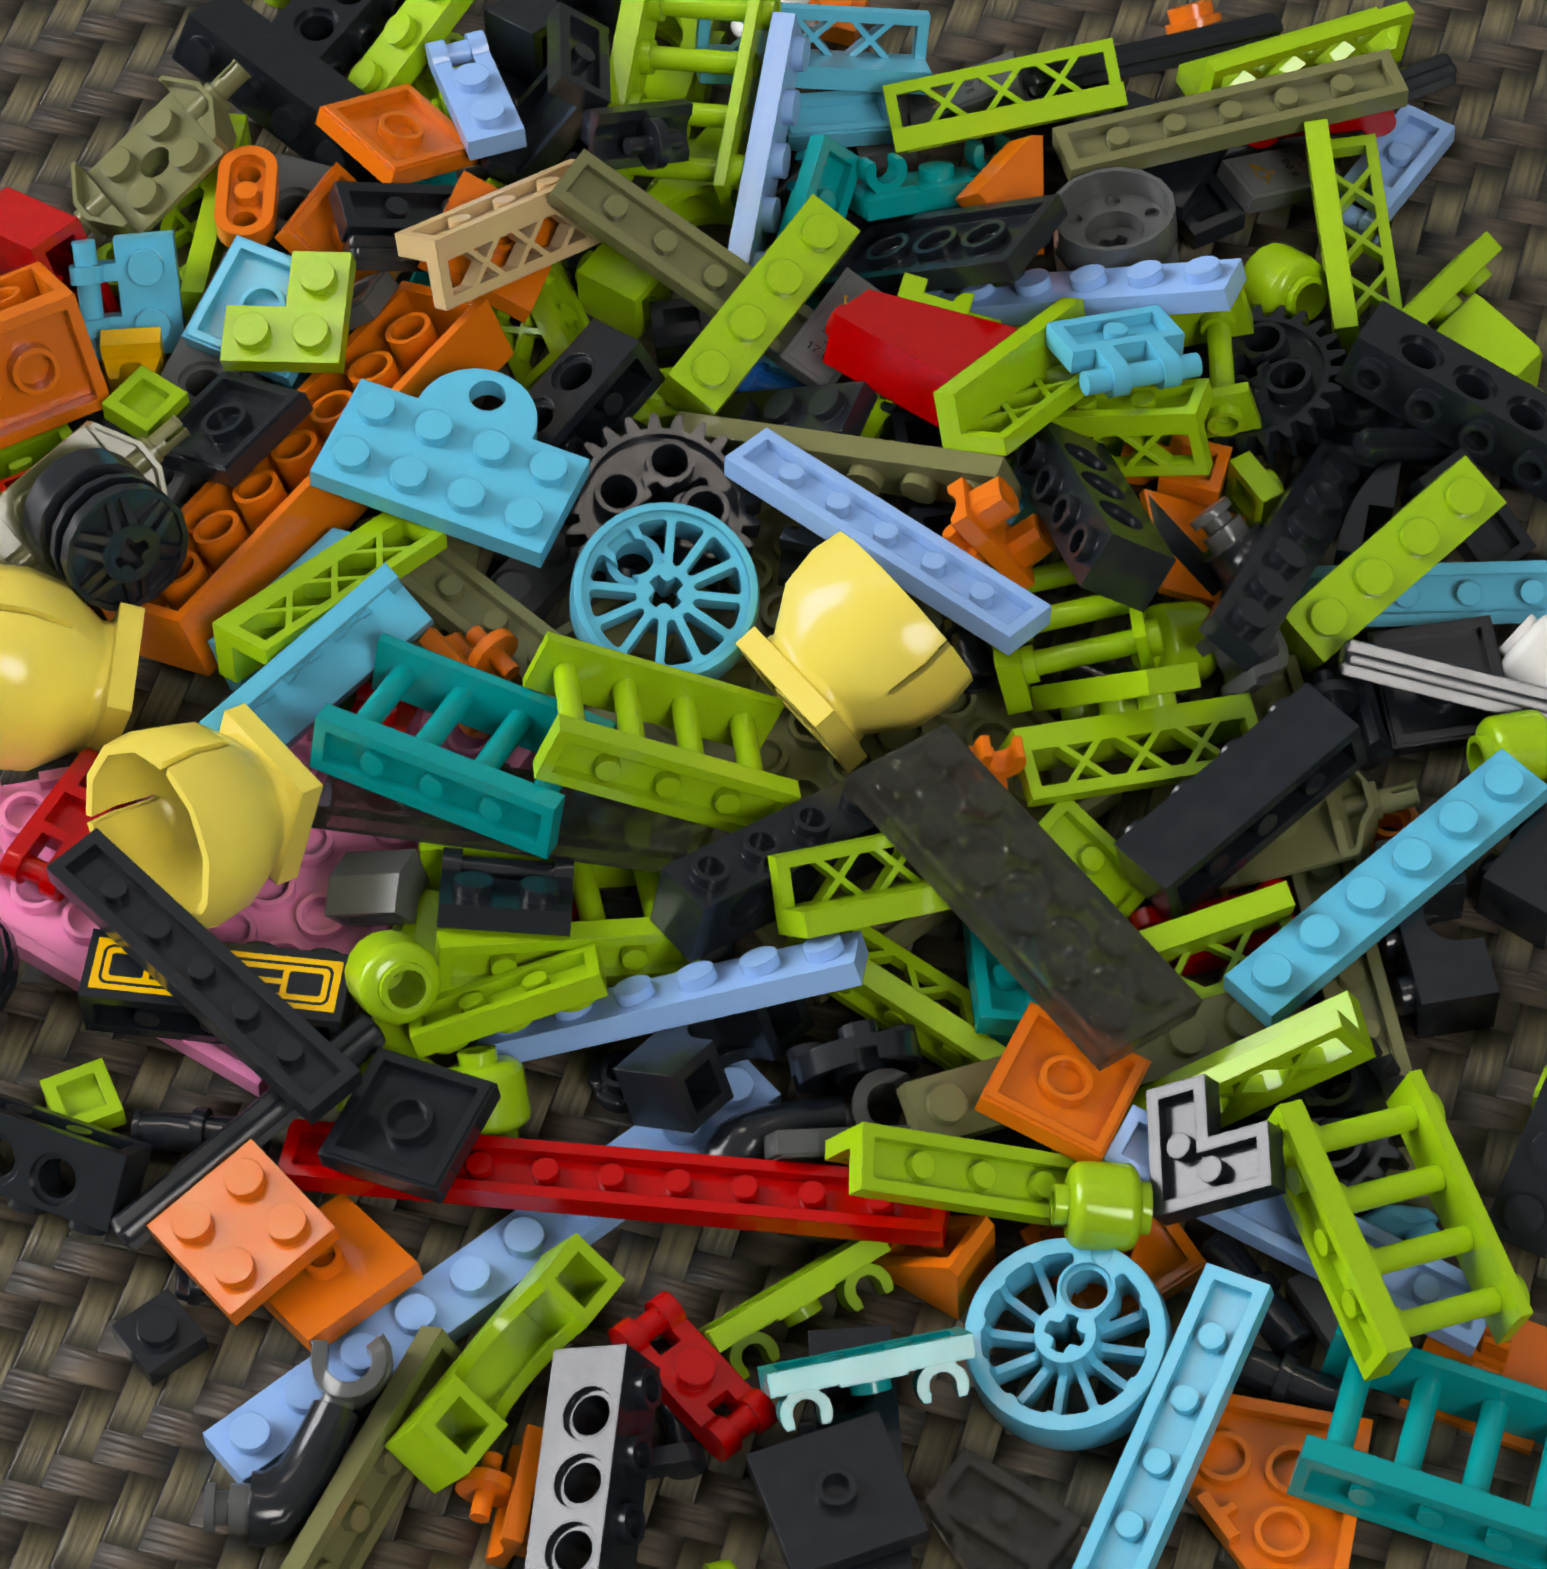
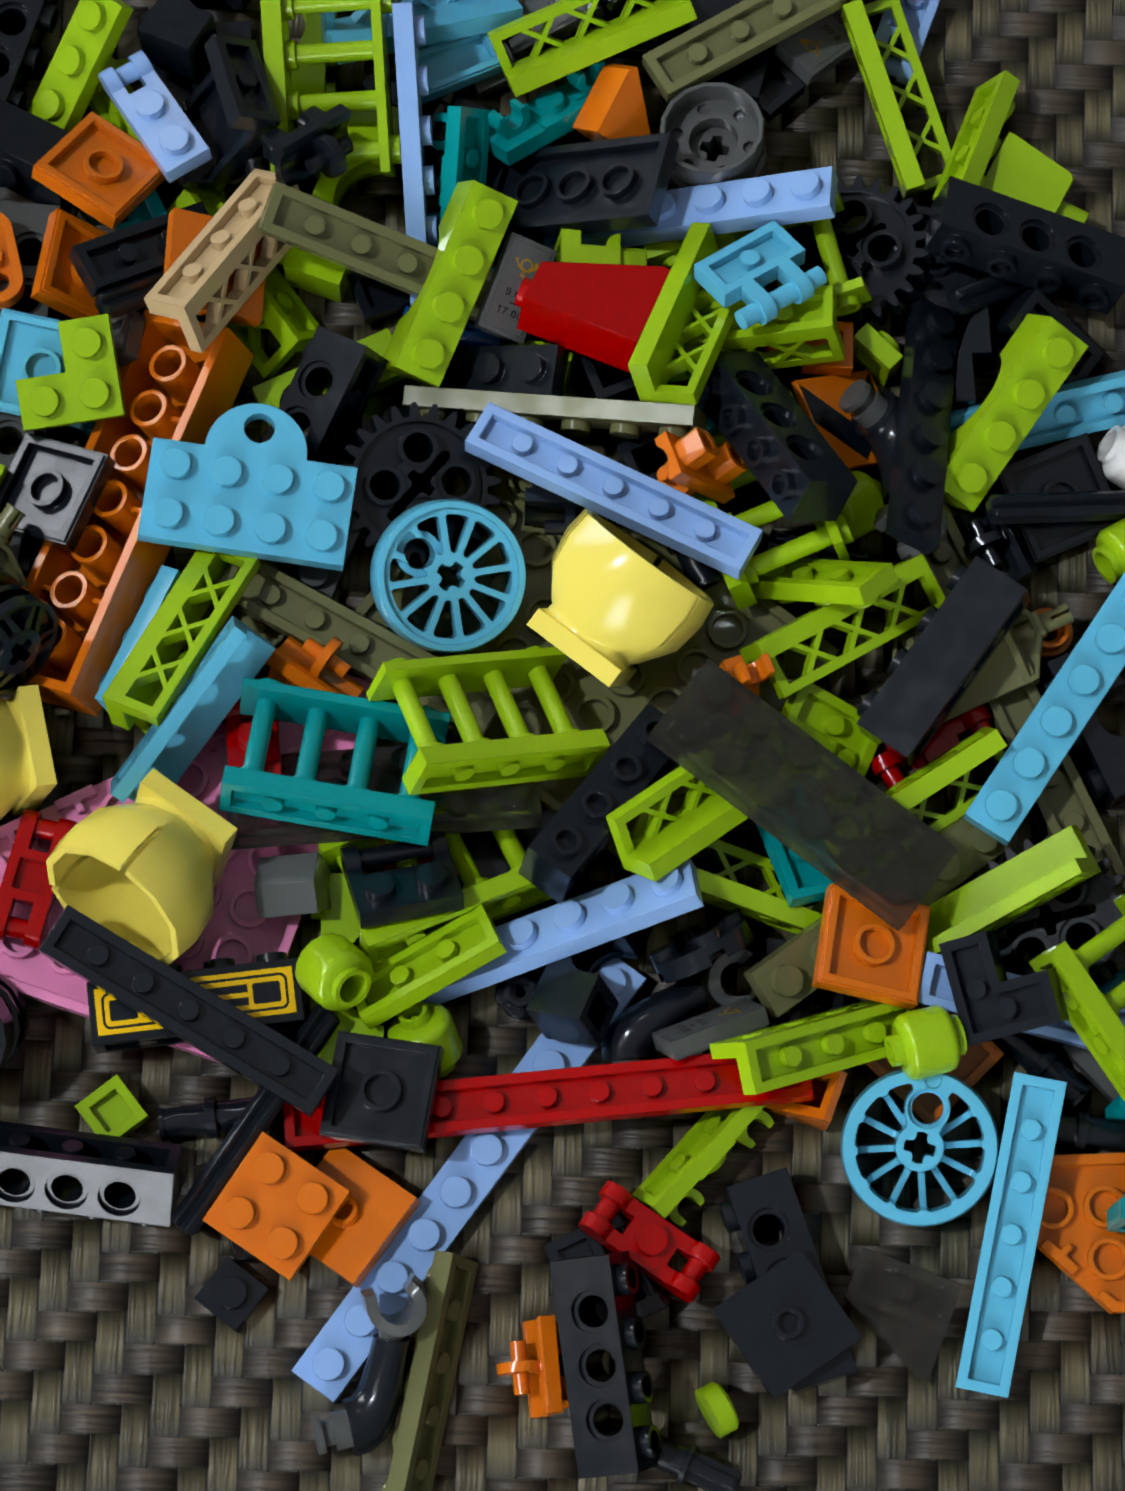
camera: 20 degrees left, 20 degrees up
(477, 1391) = (487, 1320): lime arch -> none
(868, 1371) = (784, 1217): plate -> none
(1286, 278) = (852, 148): lime head -> none

